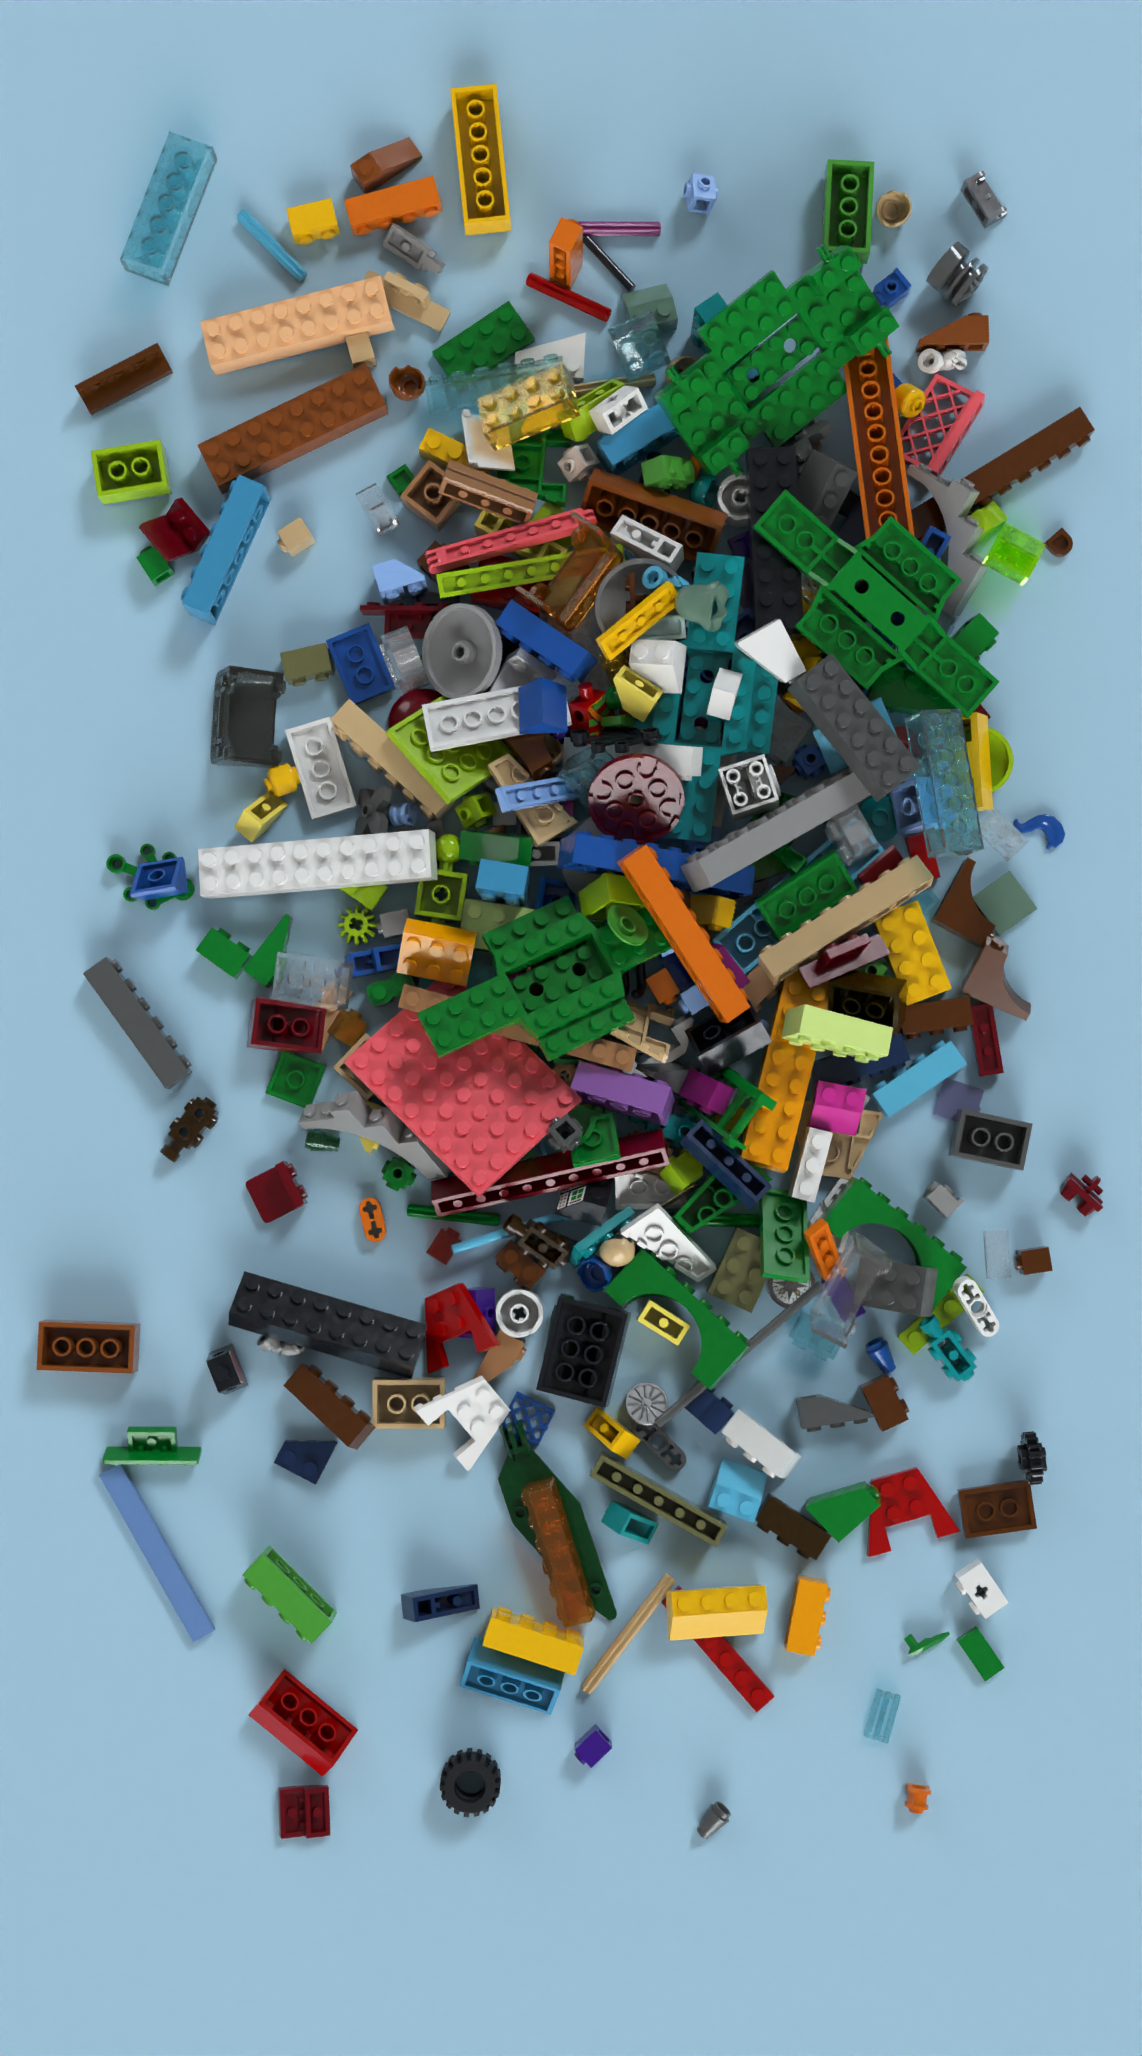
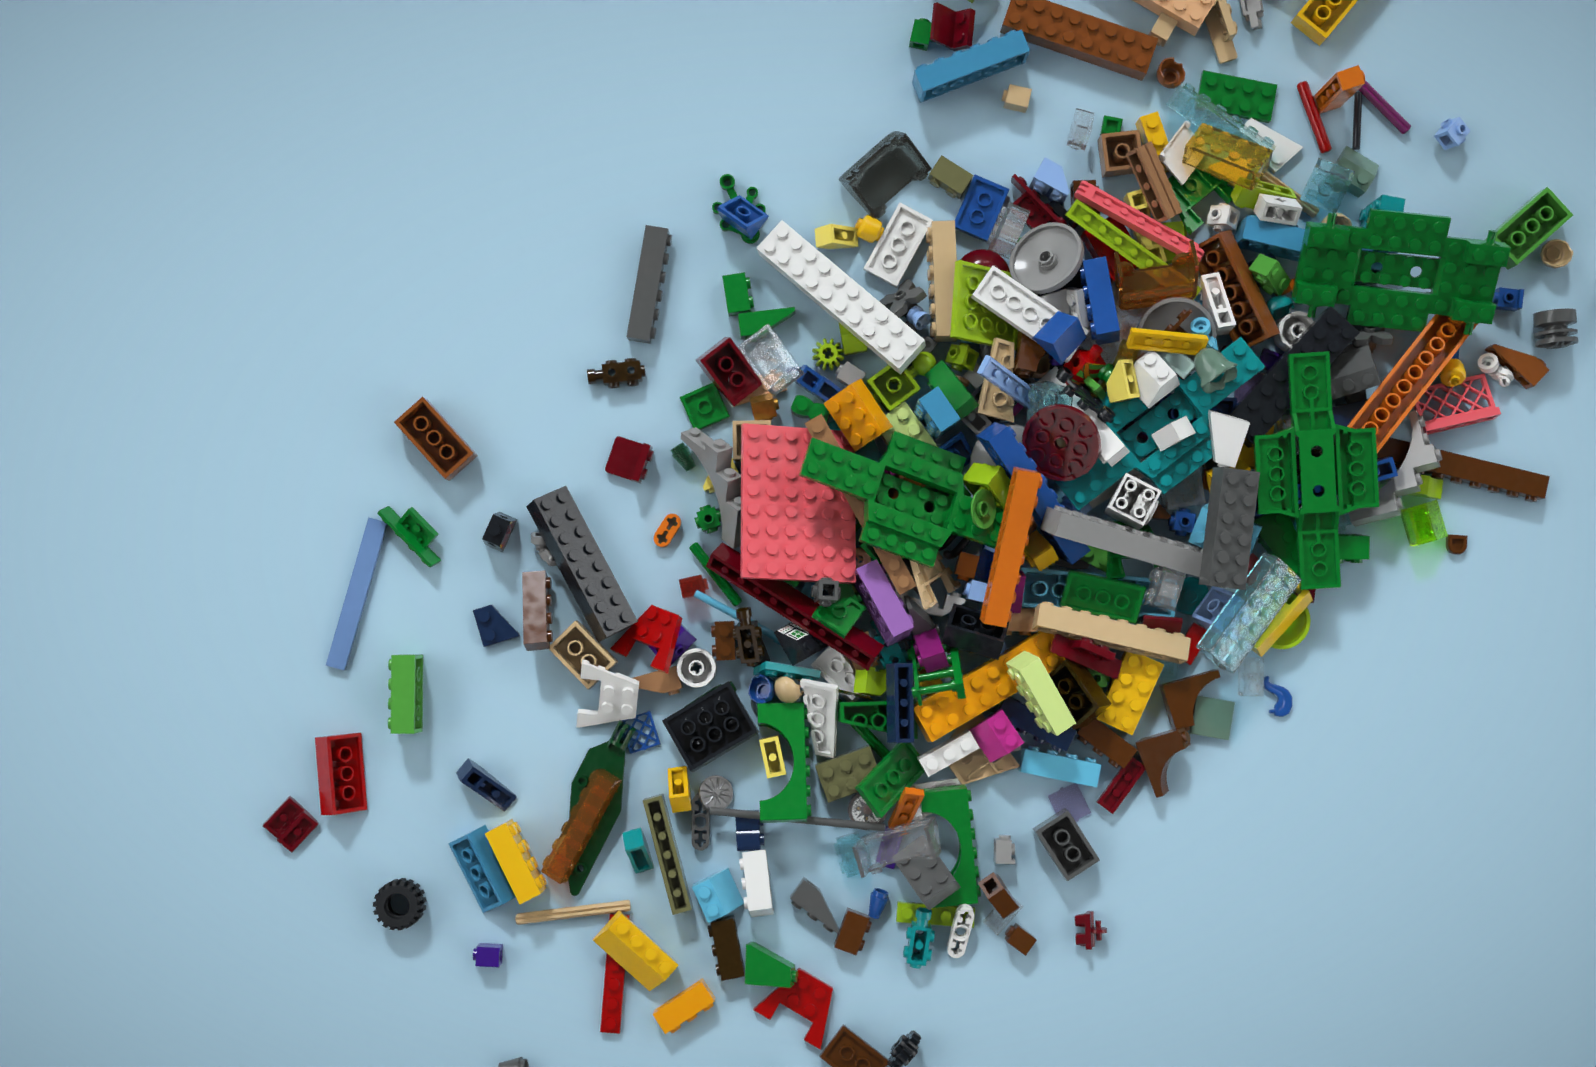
camera: 45 degrees right, 0 degrees up
(977, 1242) = (998, 895): none -> reddish brown slope

